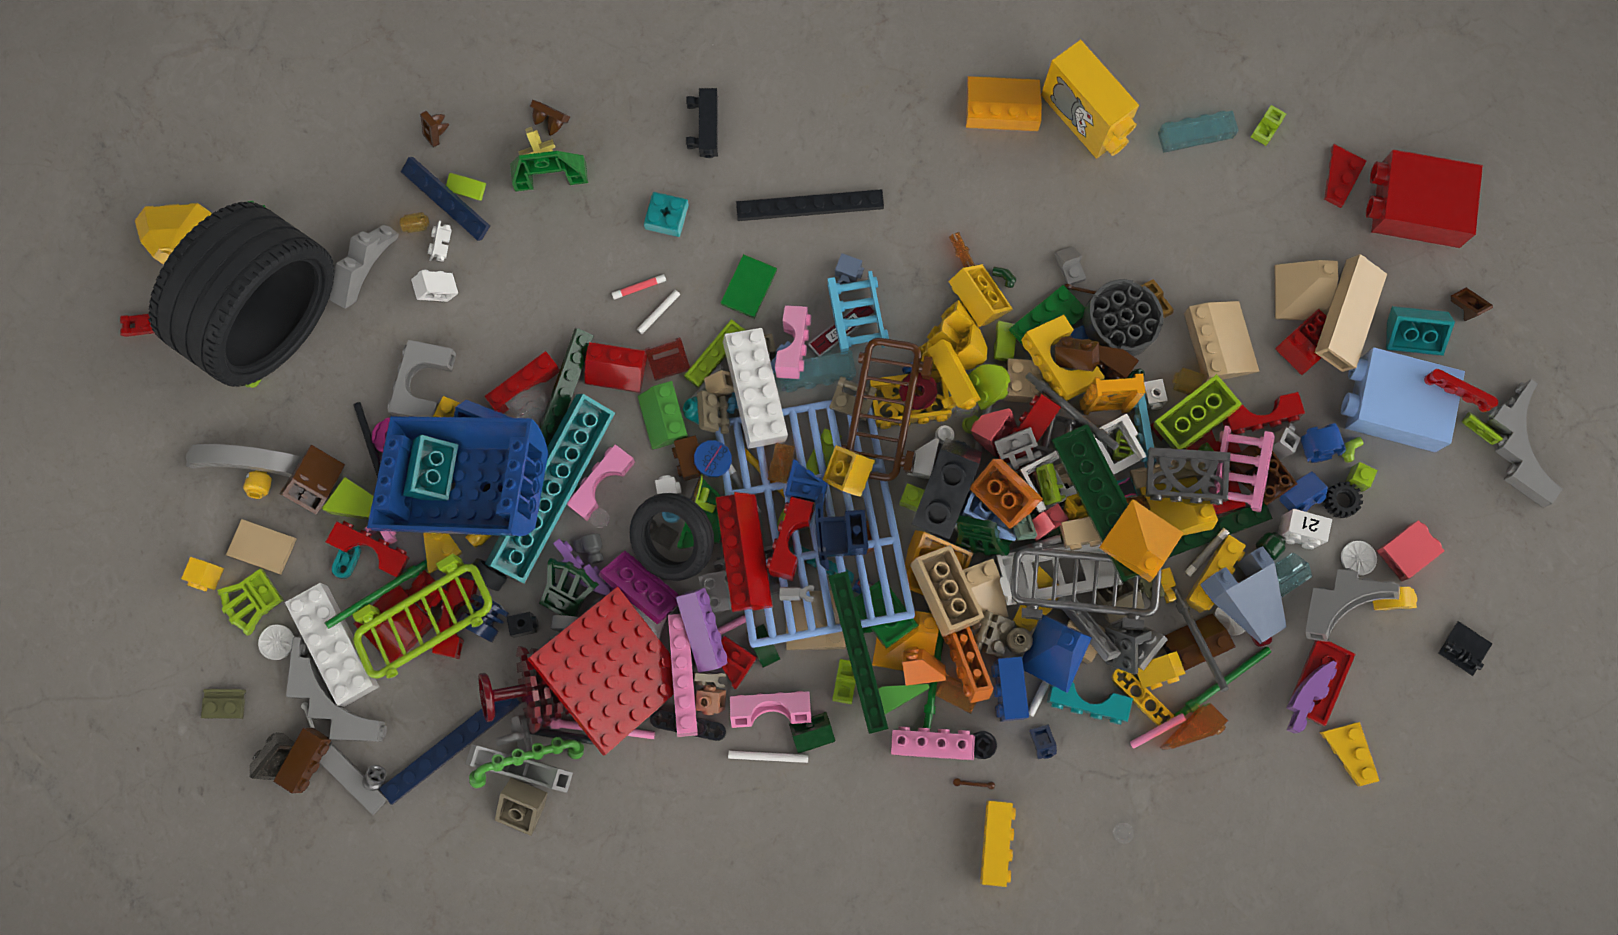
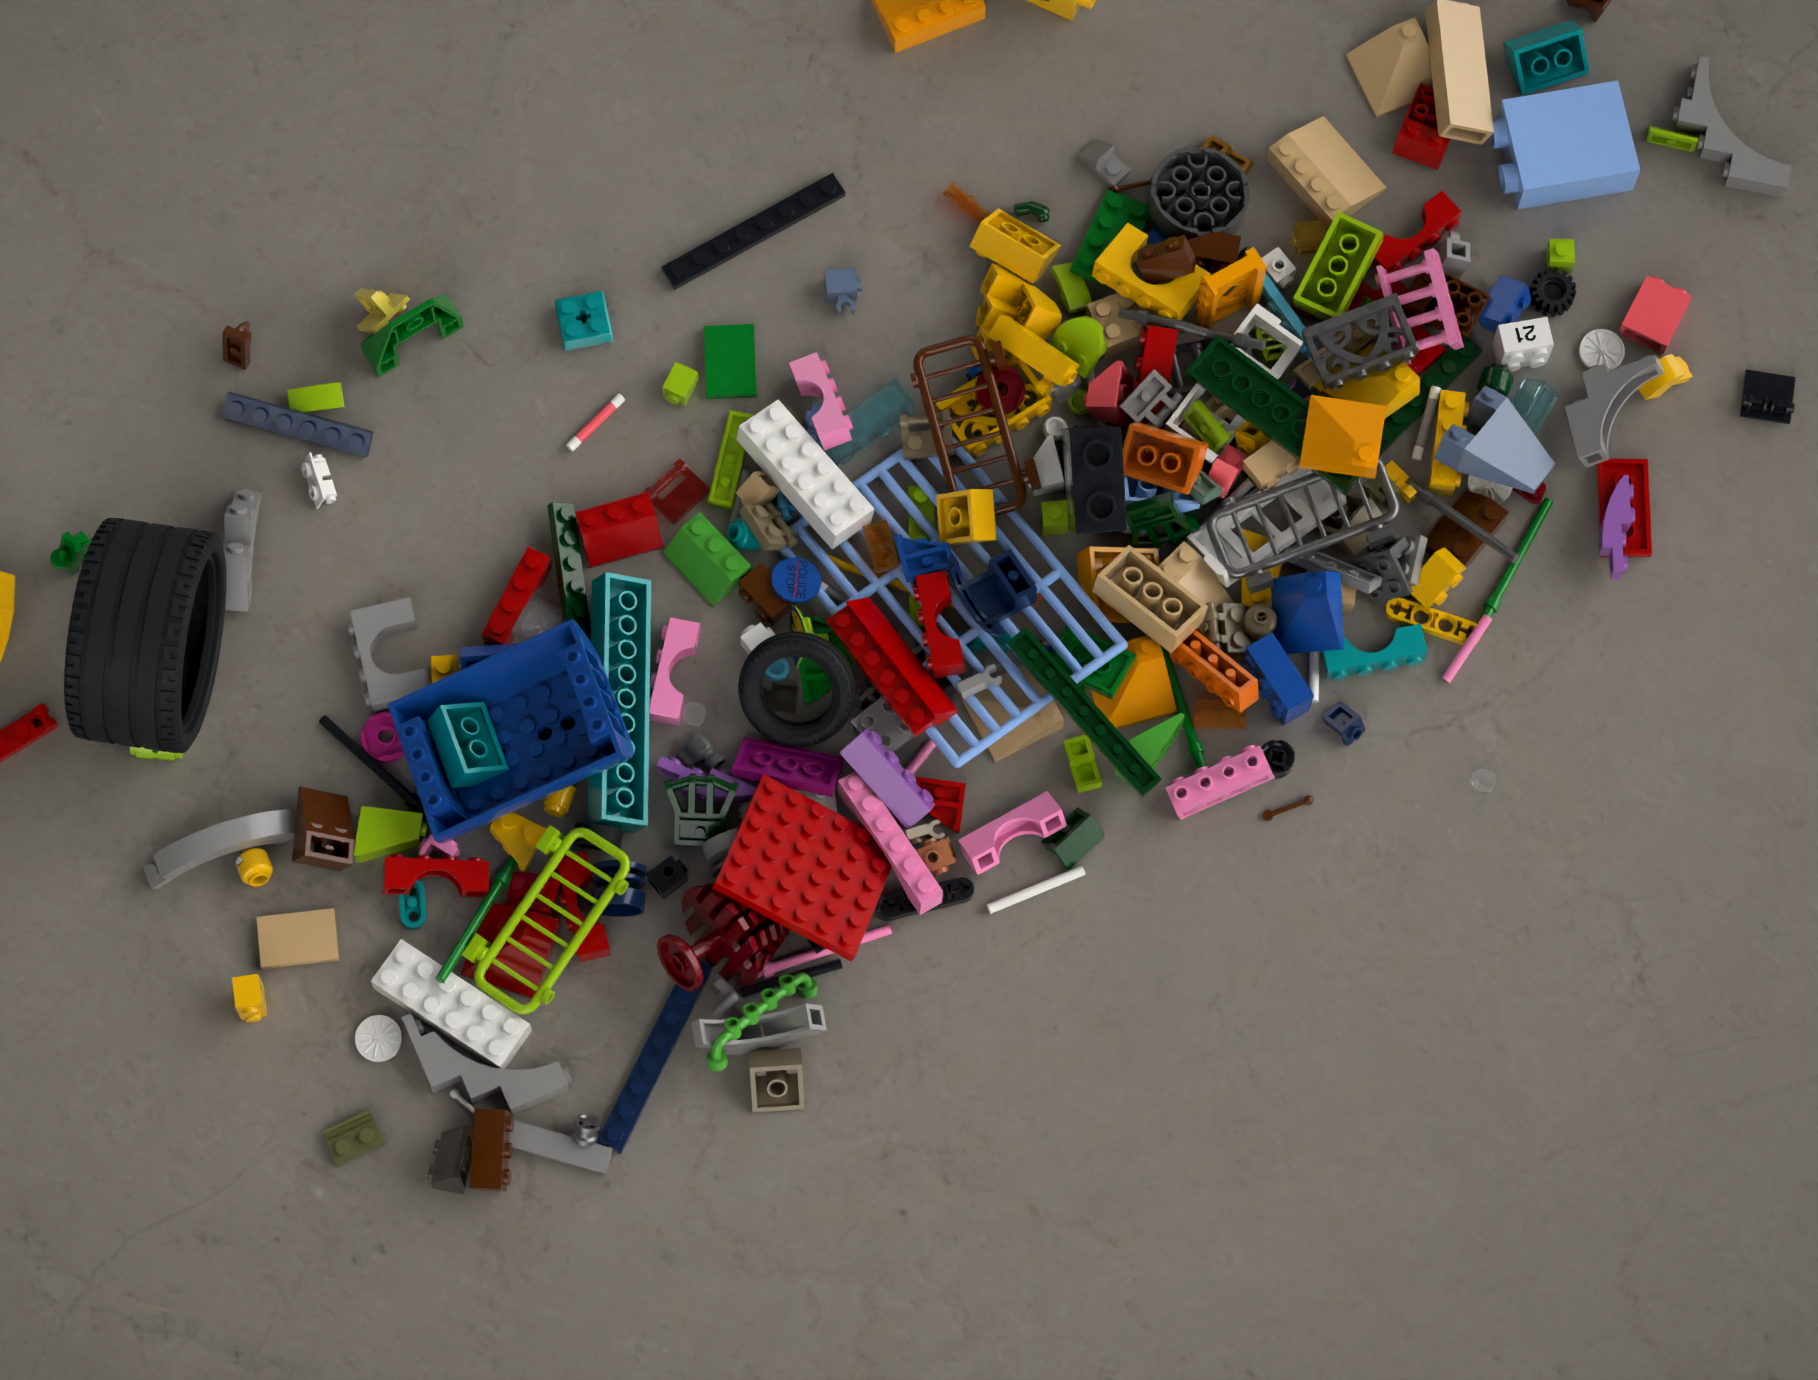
camera: 30 degrees left, 5 degrees down
(260, 593) = (328, 989): lime plate -> none
(414, 222) = (275, 470): clear yellow brick -> none
(434, 286) = (346, 533): white brick -> none
(555, 119) = (383, 268): reddish brown tile -> none
(653, 317) = (635, 441): white bar -> none
(706, 287) = (680, 384): none -> lime brick
(708, 122) = (577, 186): black brick -> none
(766, 654) = (972, 773): dark green slope -> none
(828, 338) = (869, 359): tile -> none
(840, 306) = (854, 335): medium azure fence -> none
(922, 667) = (1162, 700): orange slope -> none
(996, 844) = (1346, 856): yellow brick -> none
(1199, 725) = (1515, 612): clear orange slope -> none
(1322, 443) = (1498, 237): blue brick -> none
(1350, 448) = (1532, 231): lime arm -> none
(1353, 751) = (1694, 567): yellow wing -> none
(1462, 389) = (1622, 102): red plate -> none

